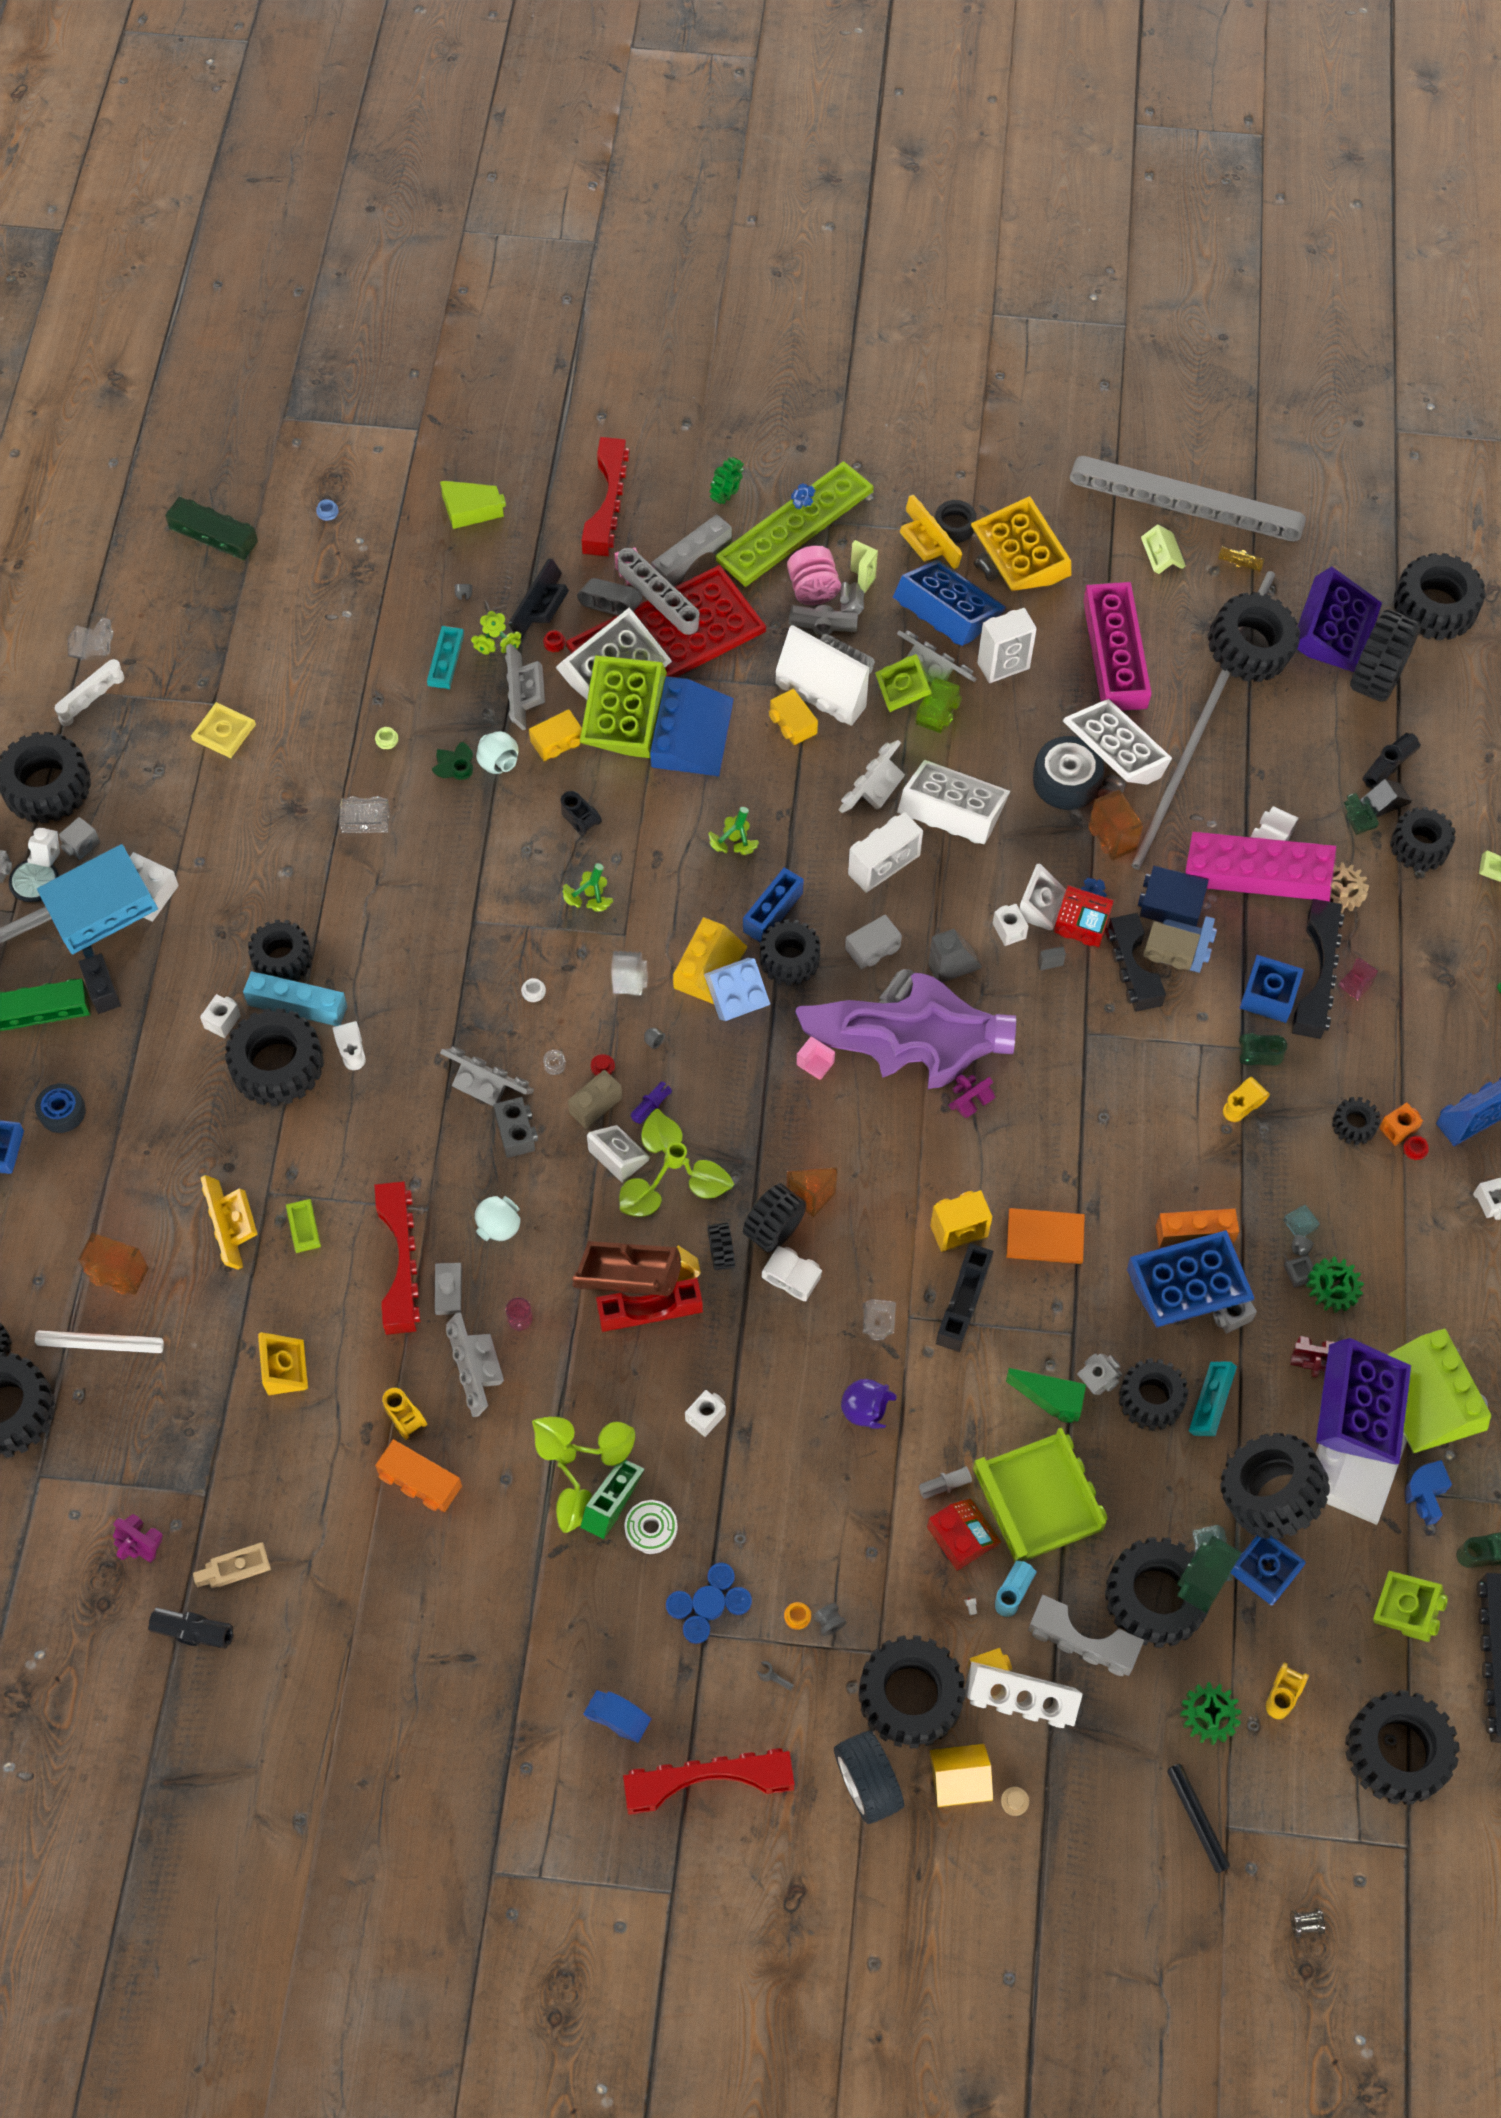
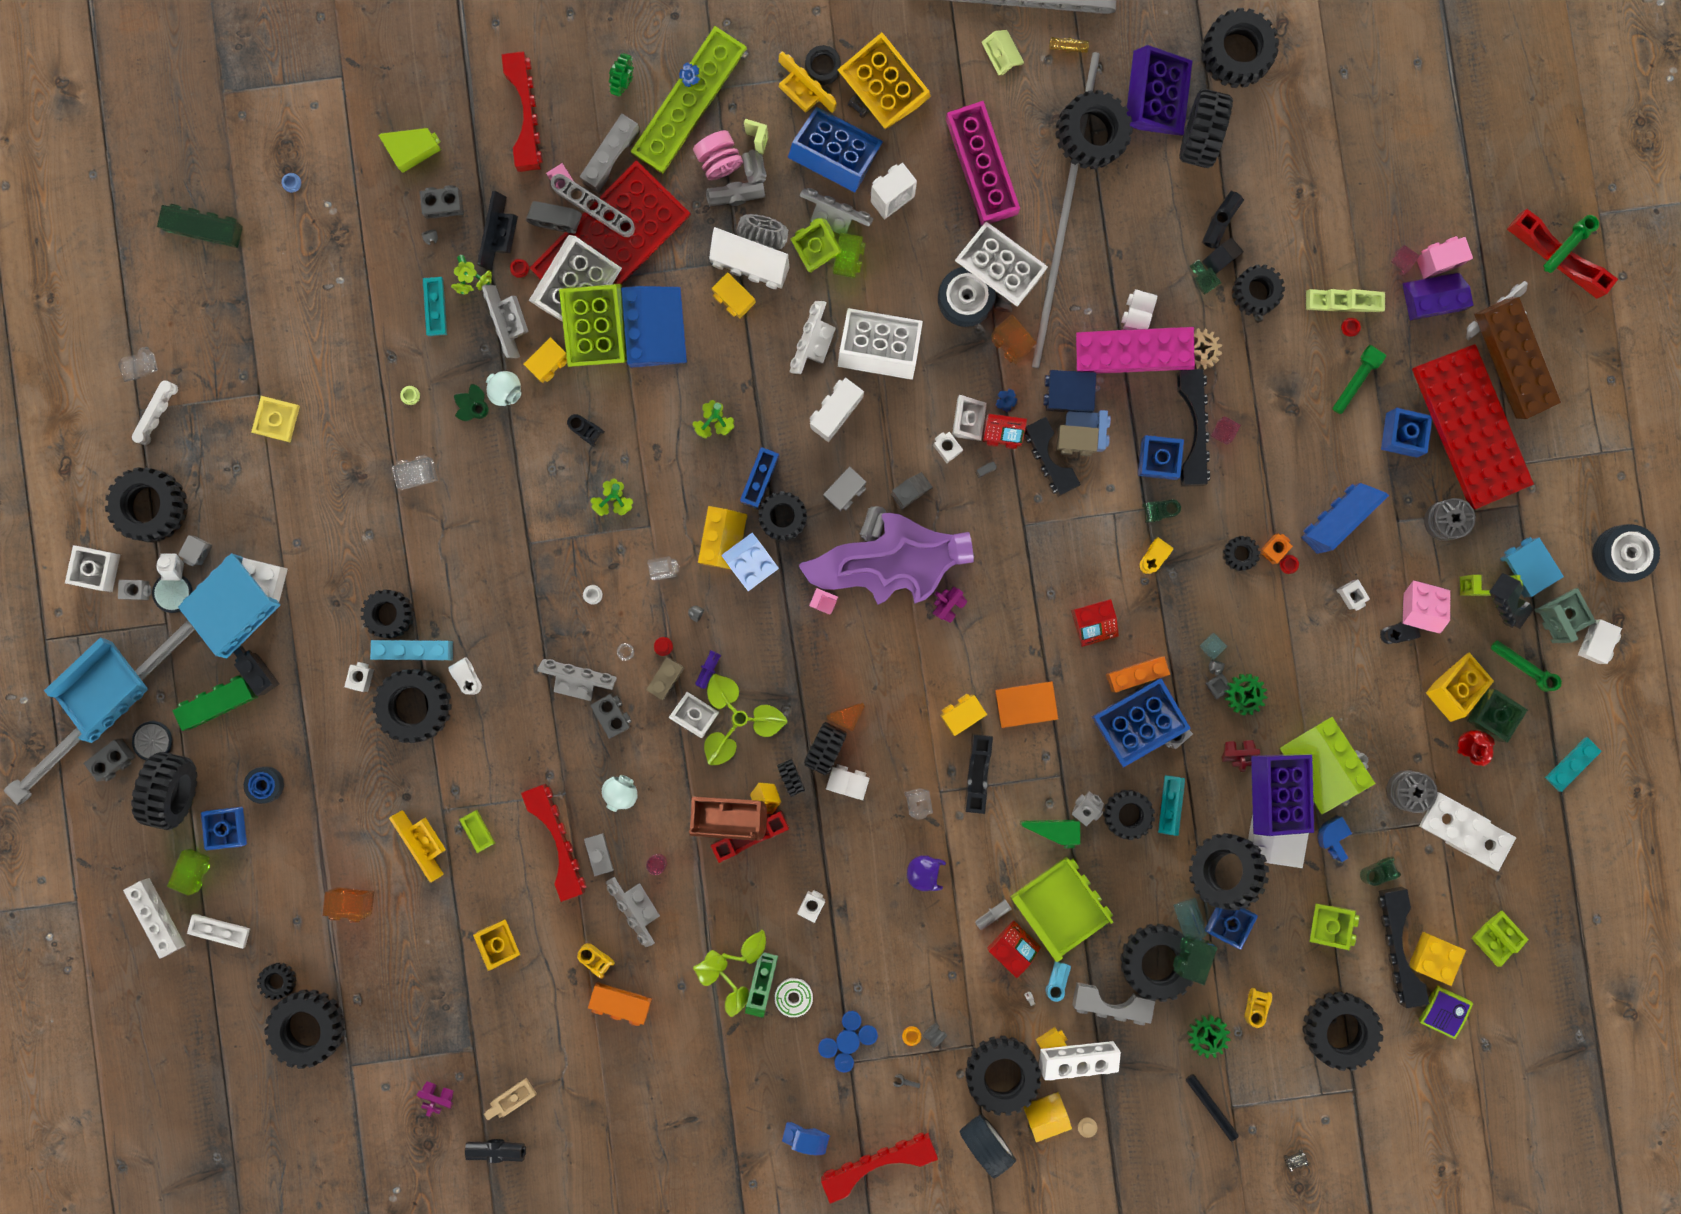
camera: 15 degrees left, 25 degrees up
(99, 1341) = (358, 958): white axle -> none
(487, 561) = (441, 207): none -> dark grey brick
(1154, 1156) = (1095, 622): none -> red slope

